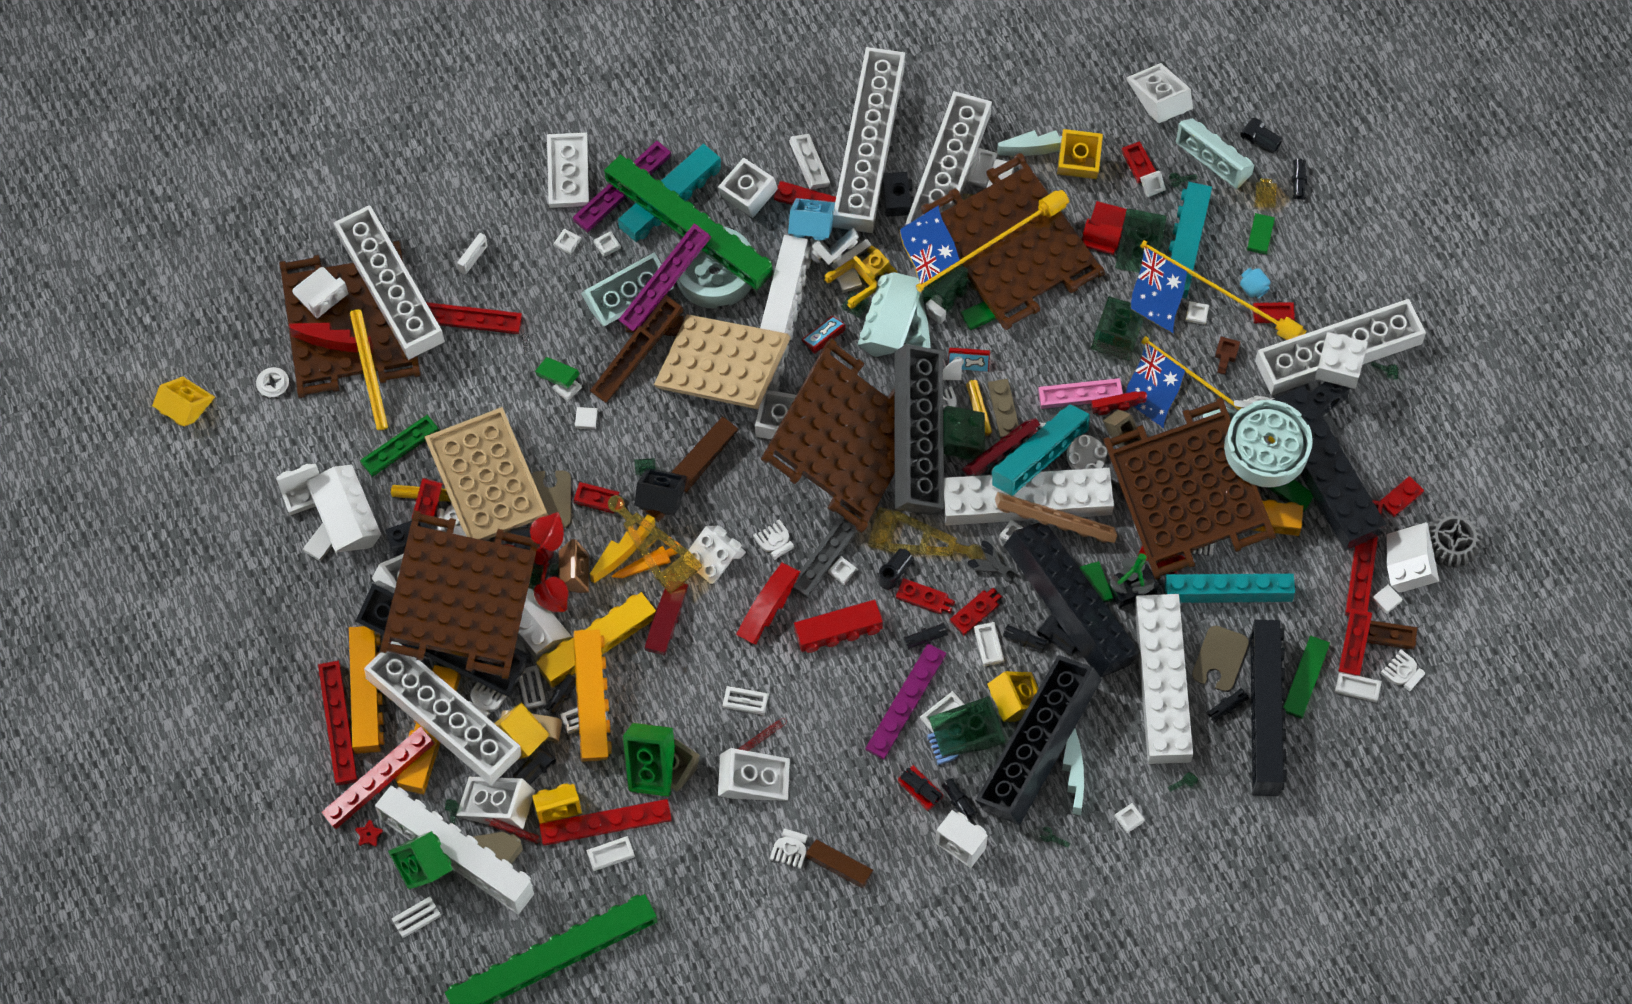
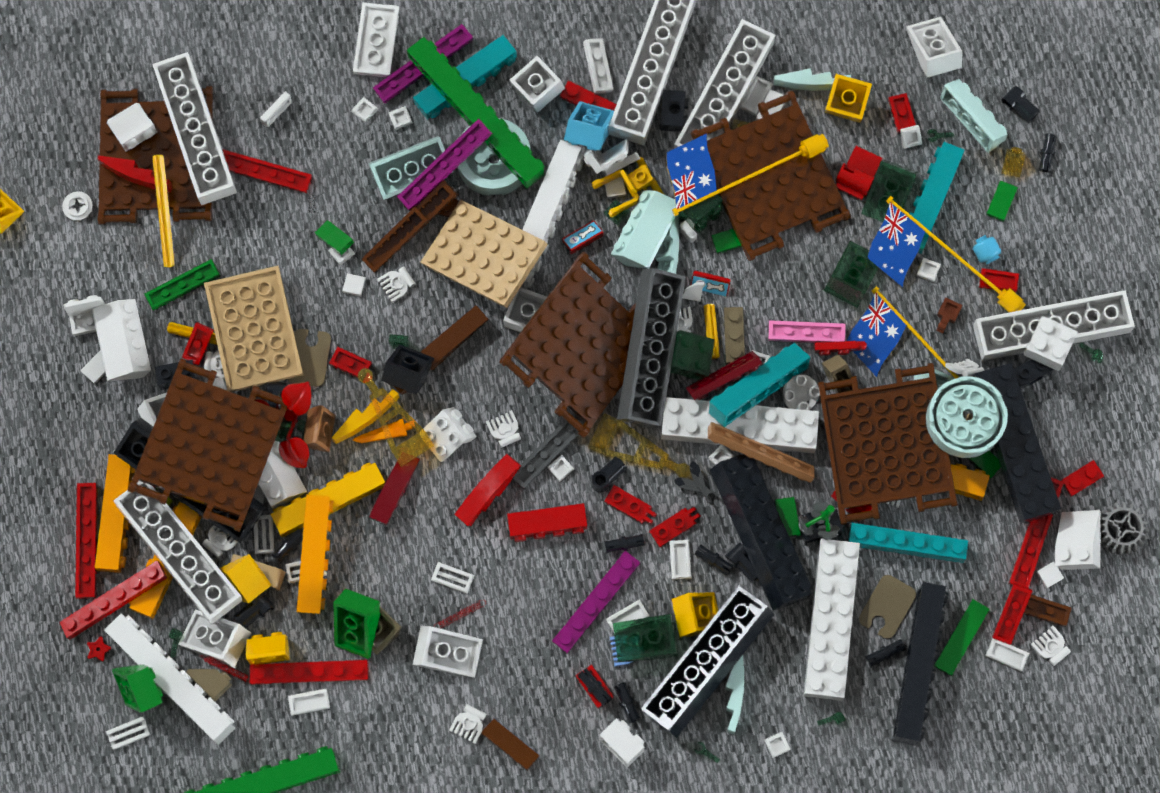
camera: 10 degrees right, 10 degrees up
(634, 408) = (398, 281): none -> white piece

